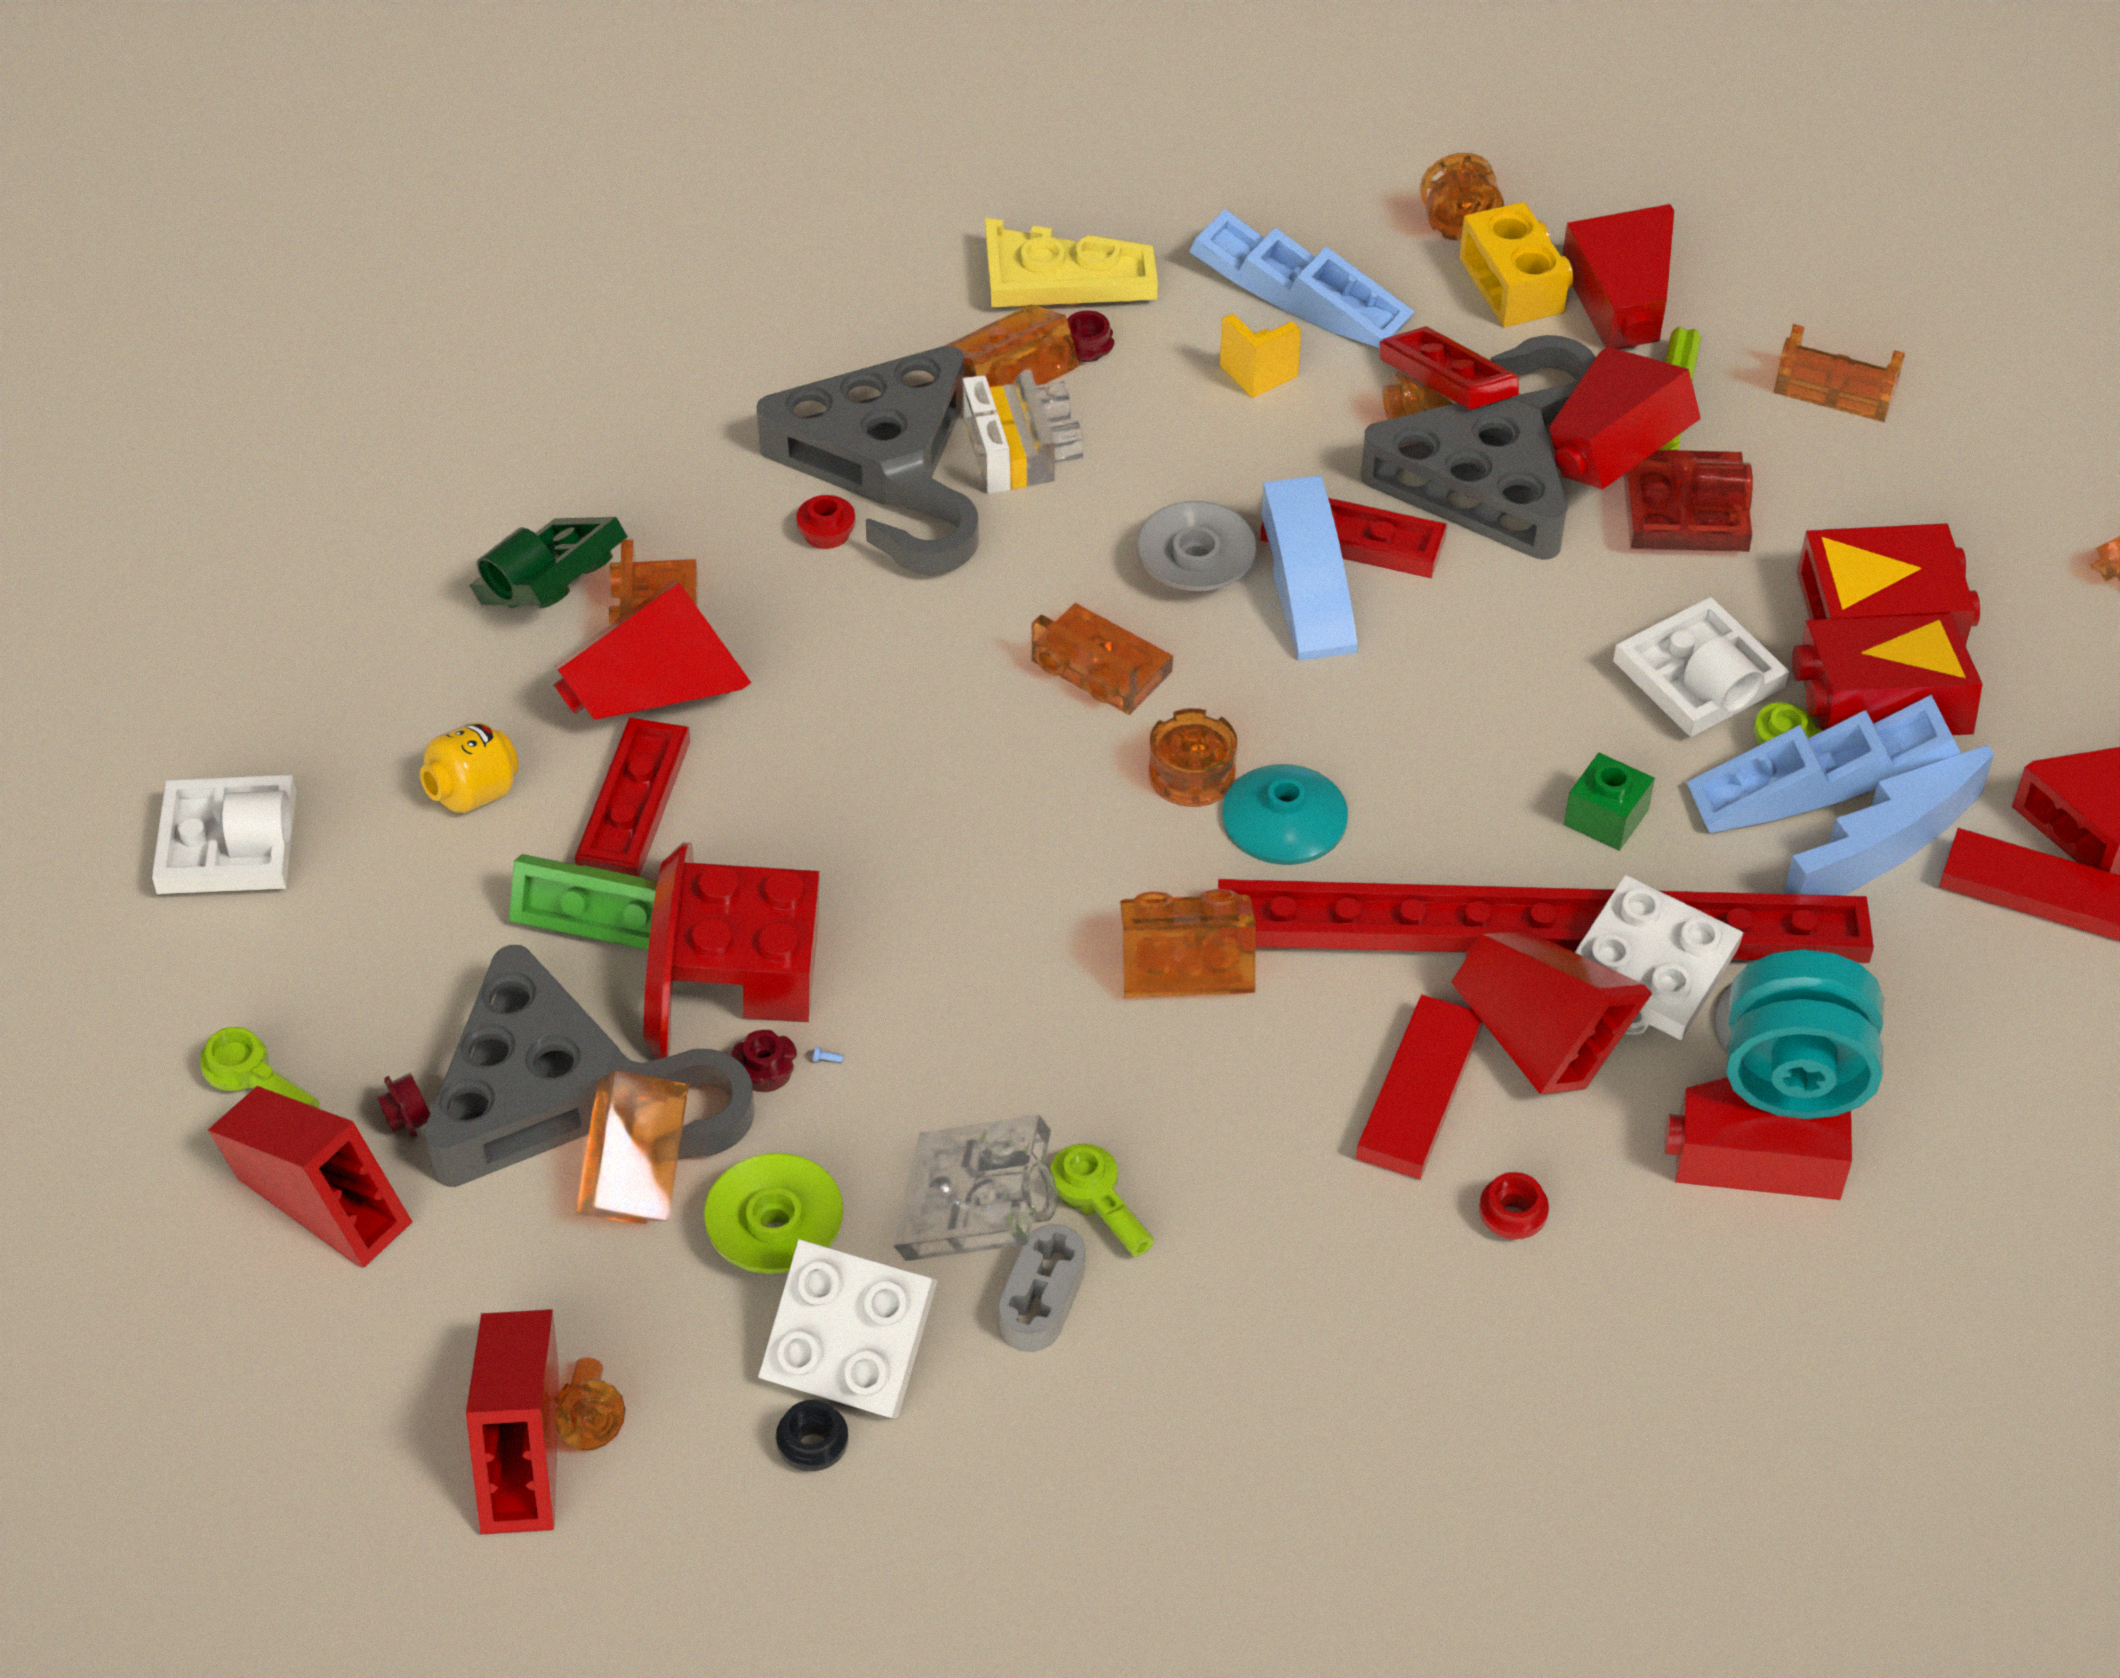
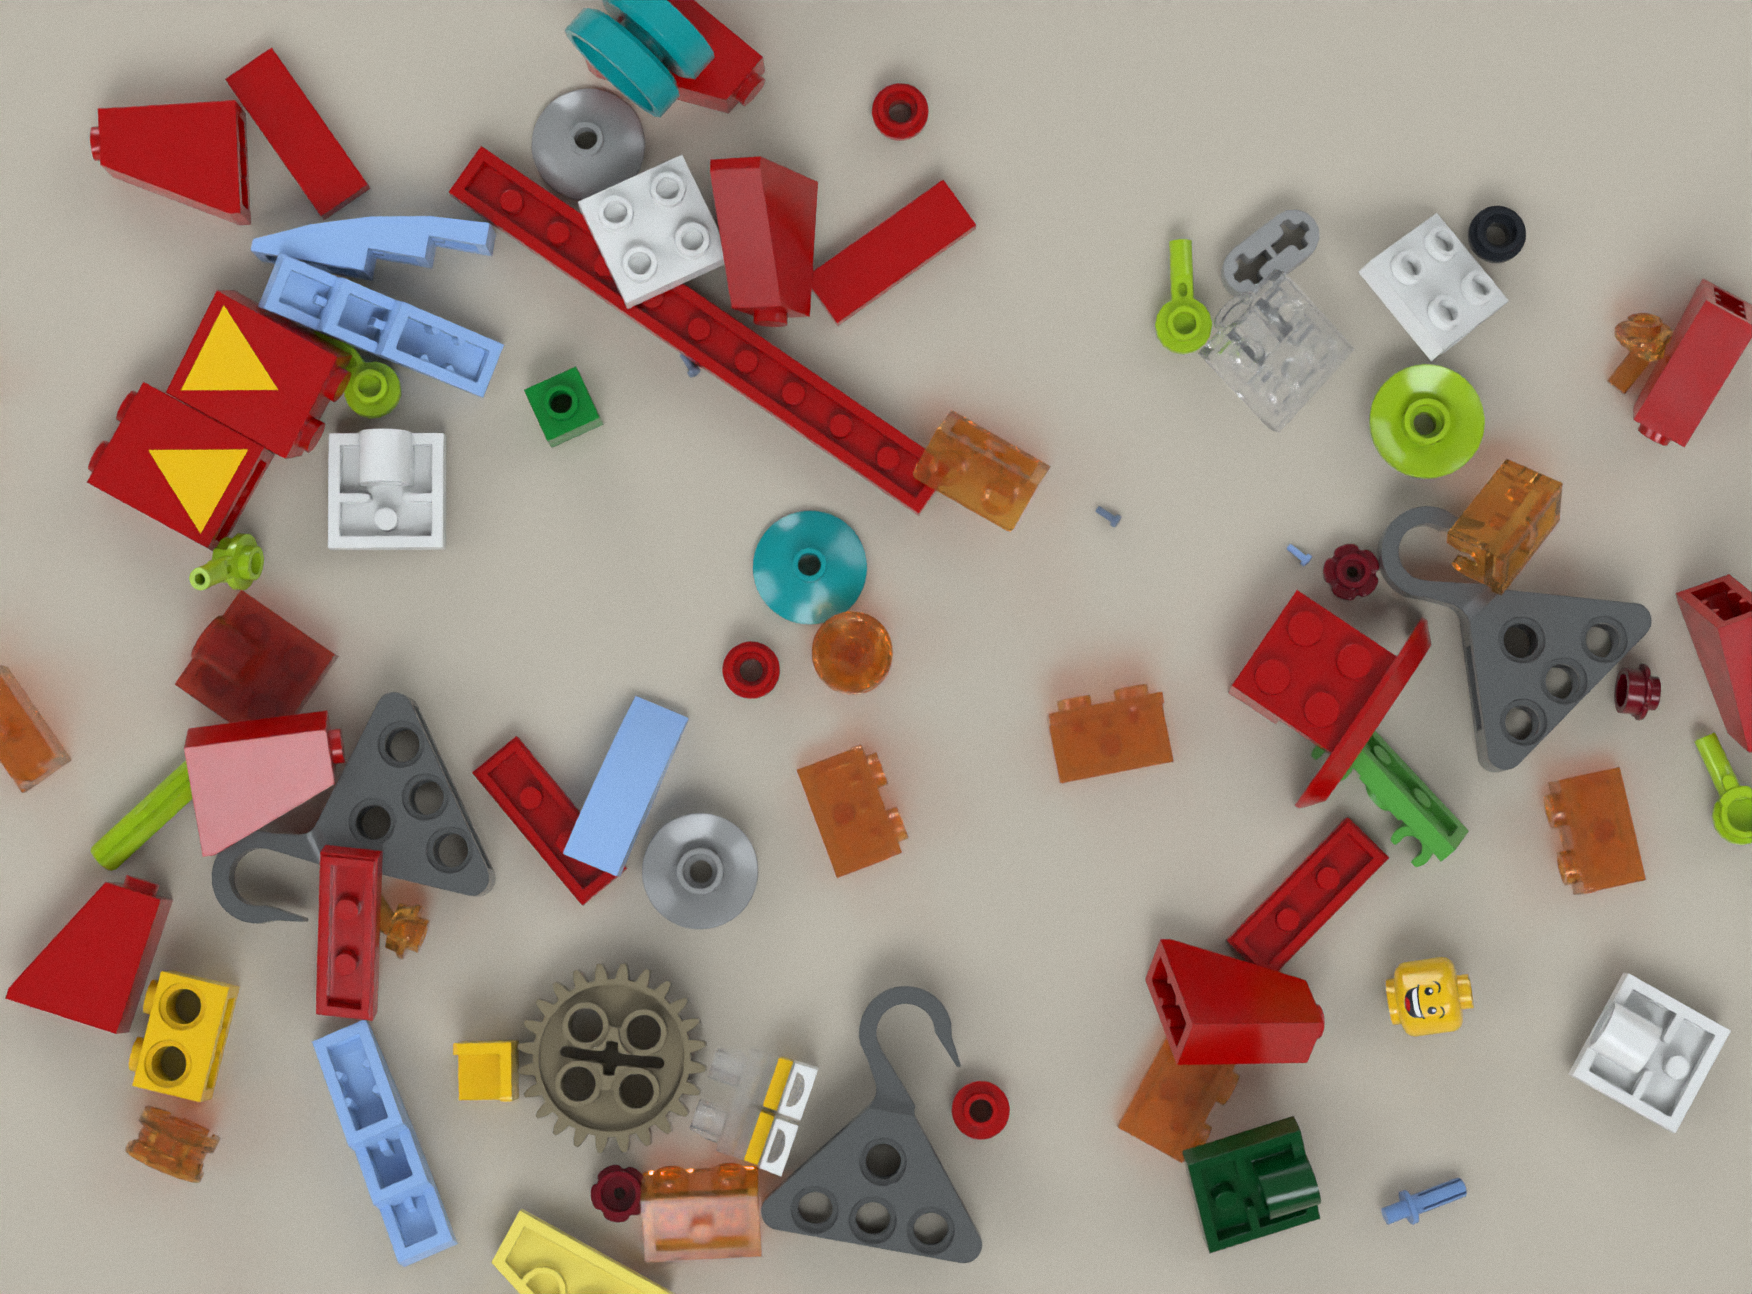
camera: 145 degrees left, 35 degrees up
(383, 974) = (1594, 831): none -> clear orange bracket
(389, 632) = (1412, 1205): none -> medium blue piece
(908, 820) = (1109, 735): none -> clear orange bracket
(1029, 990) = (1113, 519): none -> sand blue piece
(1165, 405) = (607, 1111): none -> dark tan gear
(1272, 705) = (738, 656): none -> red plate
(1776, 551) = (233, 562): none -> lime plate

